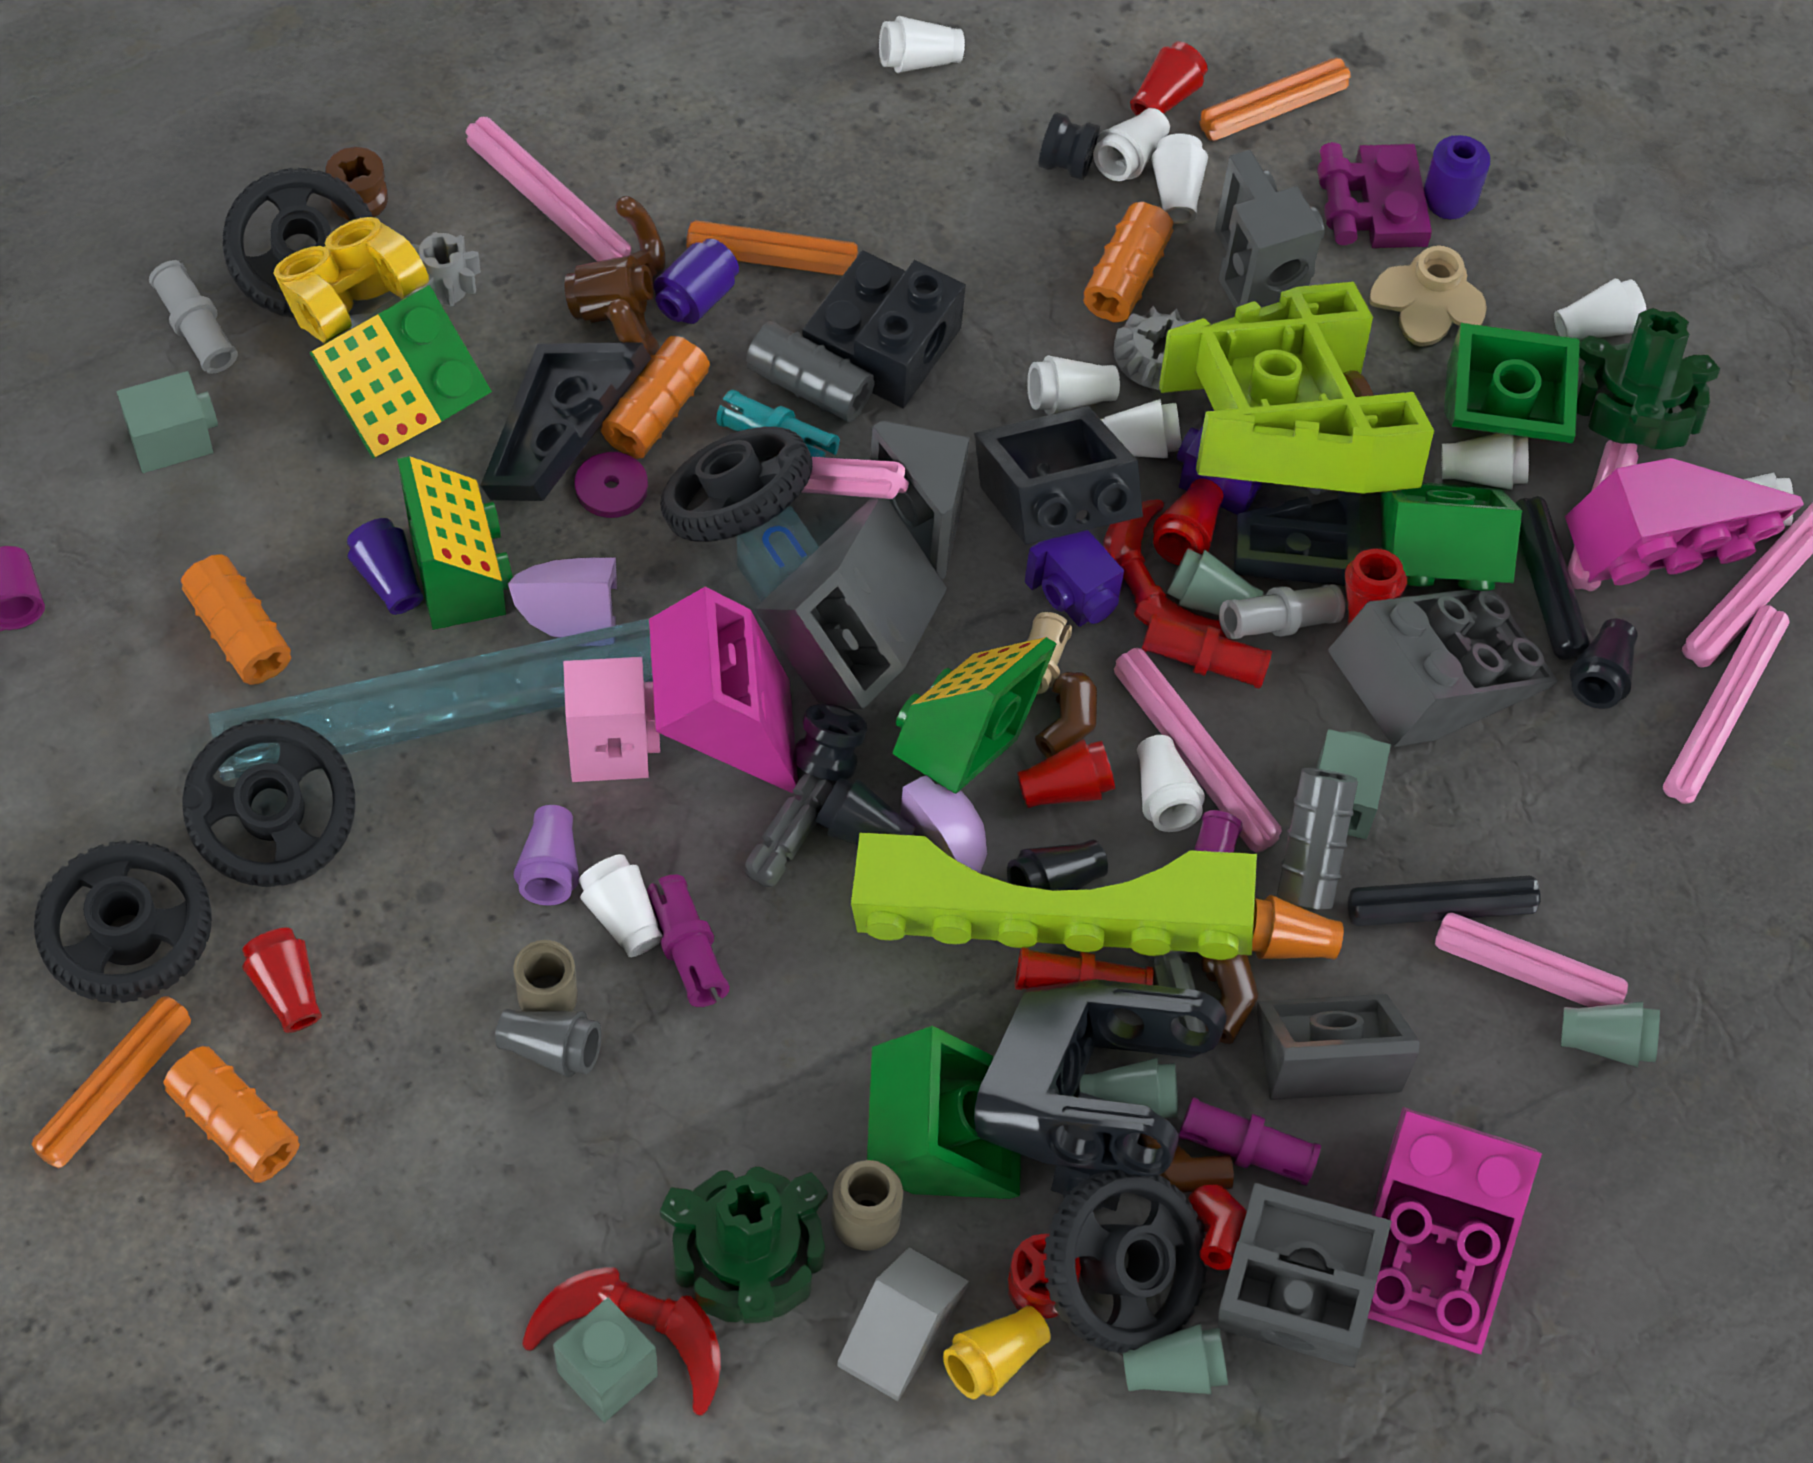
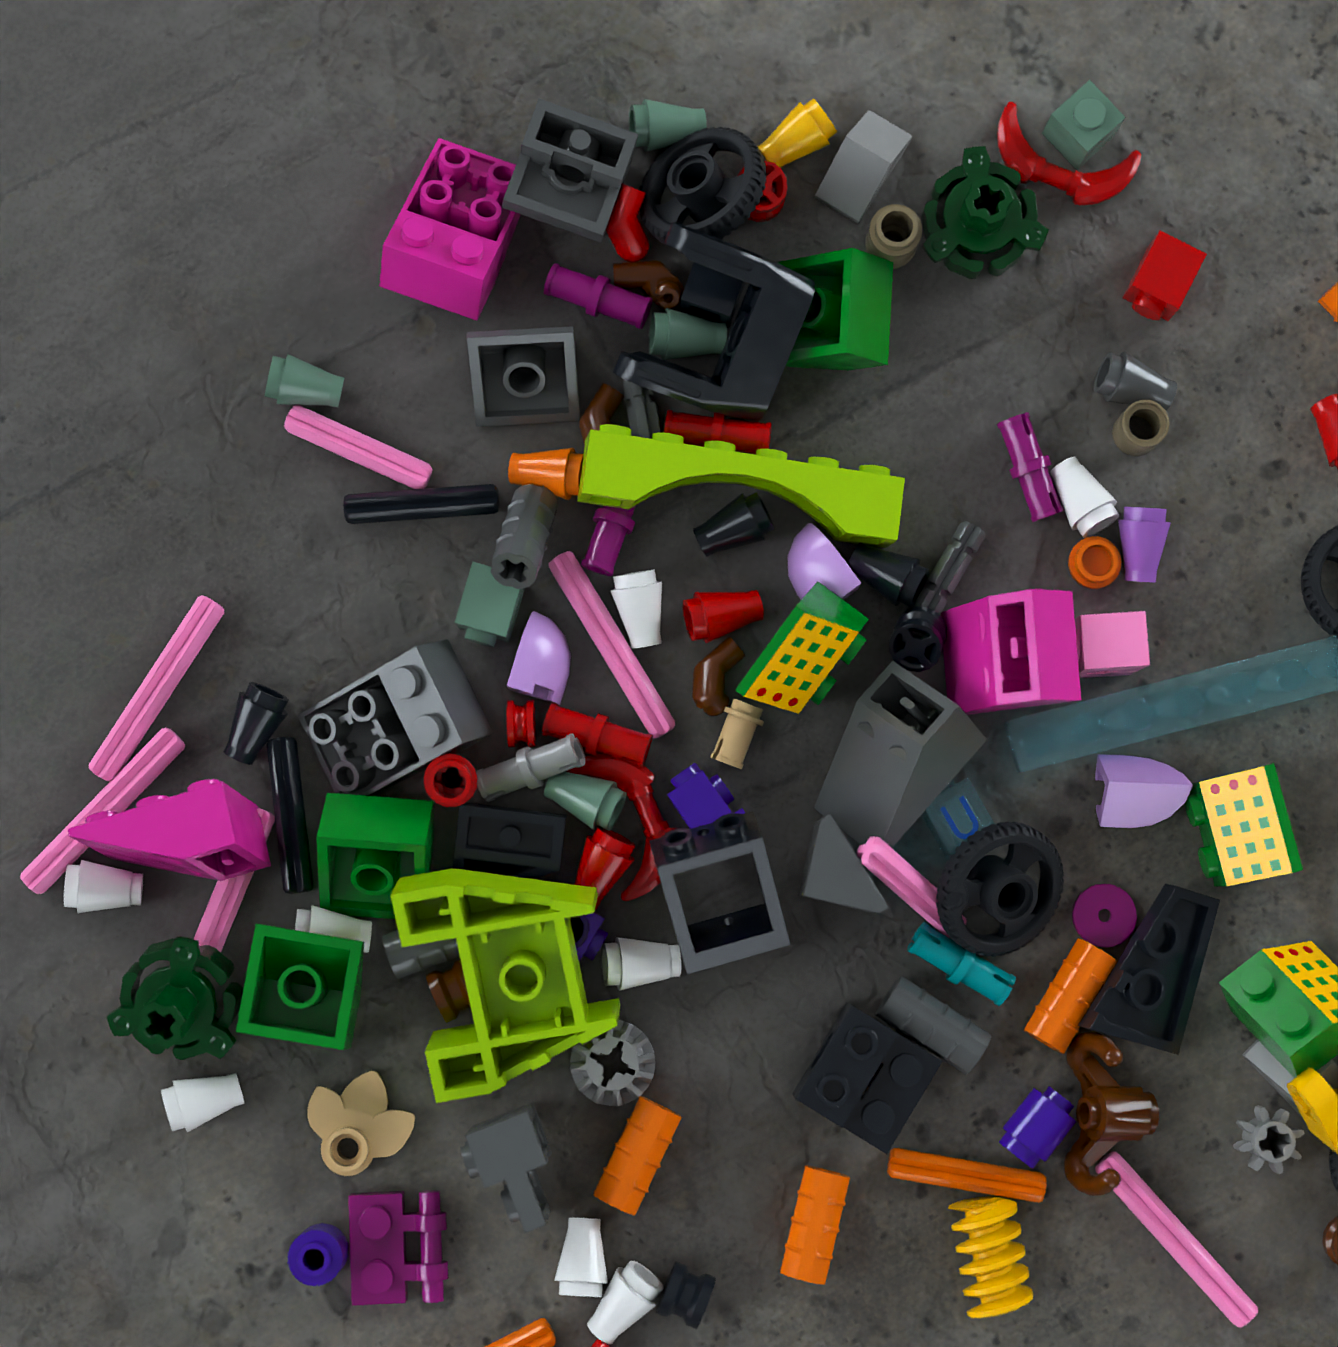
camera: 175 degrees left, 25 degrees up
(384, 561) = (1304, 819): dark purple cone -> none
(505, 1165) = (1163, 277): none -> red brick
(608, 833) = (1094, 562): none -> orange plate
(749, 169) = (992, 1255): none -> yellow piece
(935, 203) = (815, 1225): none -> orange axle
(1070, 384) = (700, 1014): white cone -> none
(1279, 727) = (541, 661): none -> lavender brick
(1296, 660) = (521, 723): none -> red bush

